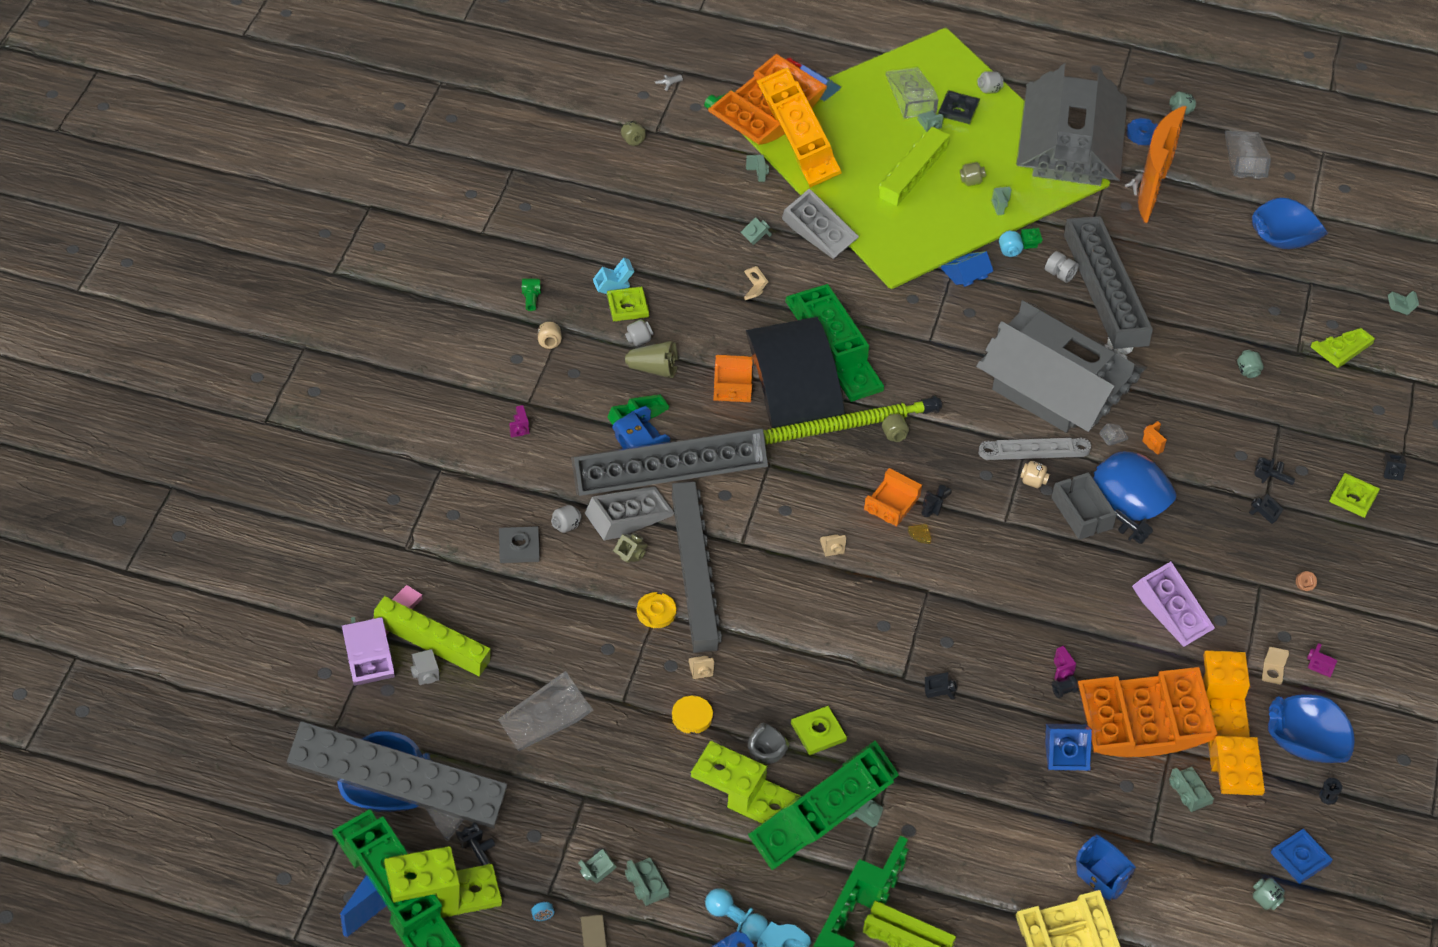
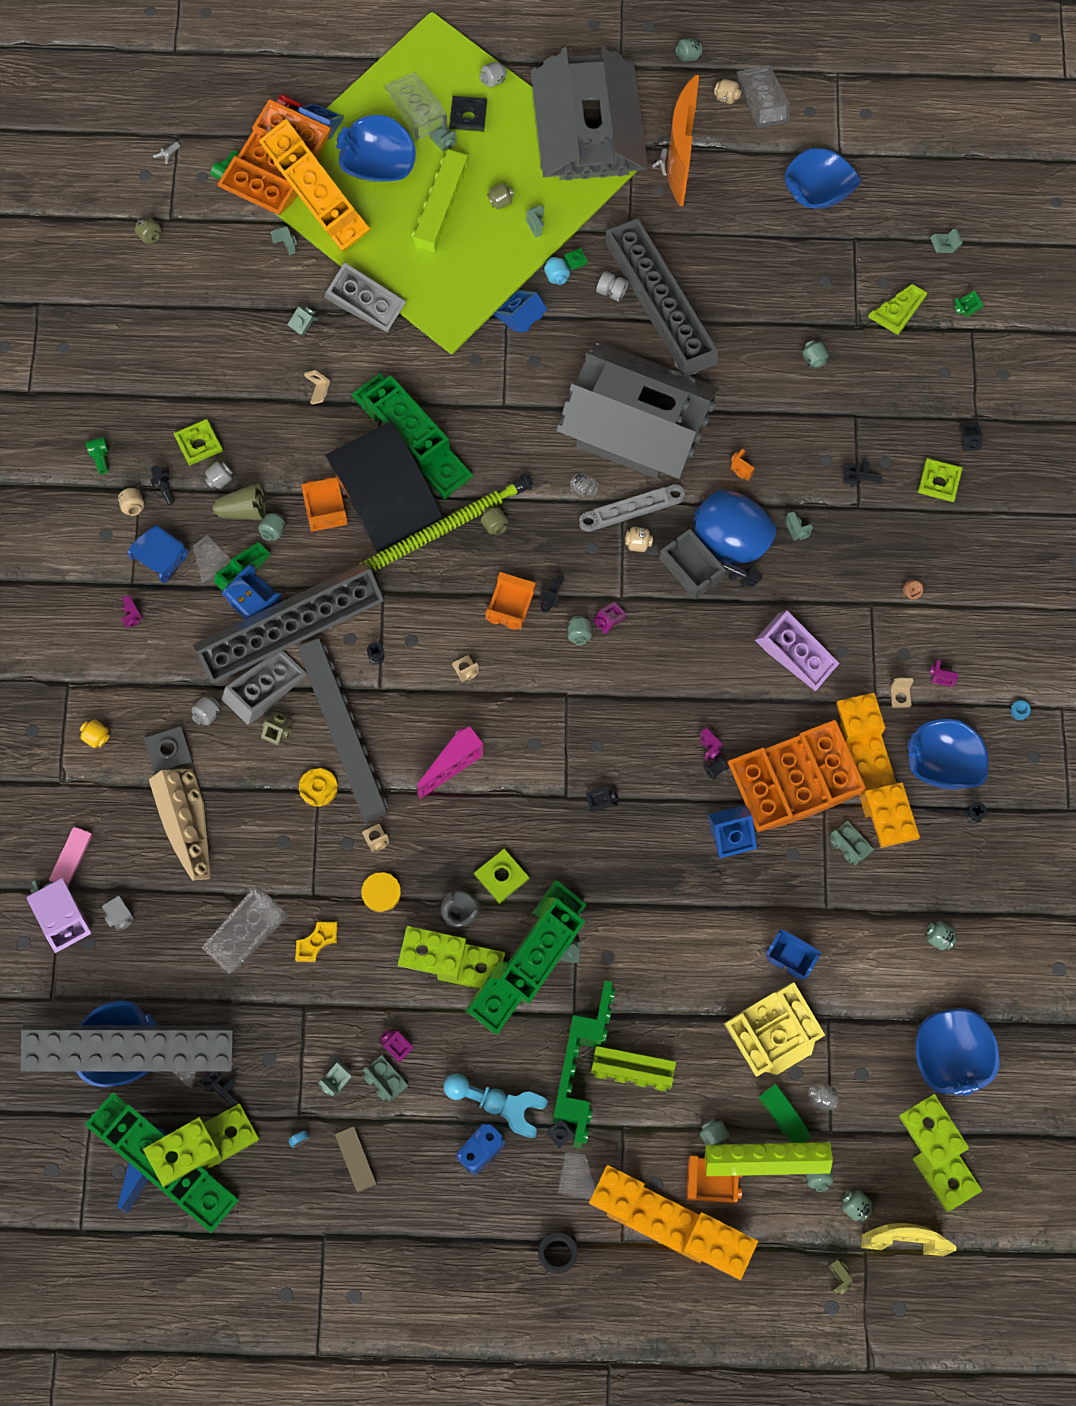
camera: 15 degrees left, 20 degrees up
(433, 635) = (114, 879): lime brick -> none
(452, 512) = (94, 733): none -> yellow head
(515, 600) = (183, 818): none -> tan wedge
(564, 378) = (159, 552): none -> blue piece
(583, 324) = (160, 478): none -> black arm
(606, 745) = (323, 935): none -> yellow tile
(608, 395) = (209, 559): none -> clear wing
(615, 279) = (176, 418): medium azure brick -> none
(667, 851) = (395, 1044): none -> magenta bracket
(677, 384) = (272, 526): none -> sand green head
(746, 513) = (377, 658): none -> black bush
(796, 614) = (458, 754): none -> dark pink slope
(864, 112) = (376, 149): none -> blue piece
(920, 533) = (545, 633): clear yellow tile -> none
(955, 537) = (579, 630): none -> sand green head
(988, 532) = (609, 617): none -> magenta bracket
(991, 419) = (584, 486): none -> clear head
(1113, 434) = (702, 469): clear slope -> none
(1134, 131) = (656, 102): blue tile -> none
(1197, 502) = (795, 527): none -> sand green bracket
(1212, 141) = (727, 91): none -> tan head
(1267, 508) = (861, 517): black bracket -> none
(1301, 856) = (962, 885): blue tile -> none
(1397, 713) = (1020, 710): none -> dark azure tile
(1415, 357) = (969, 304): none -> green bracket

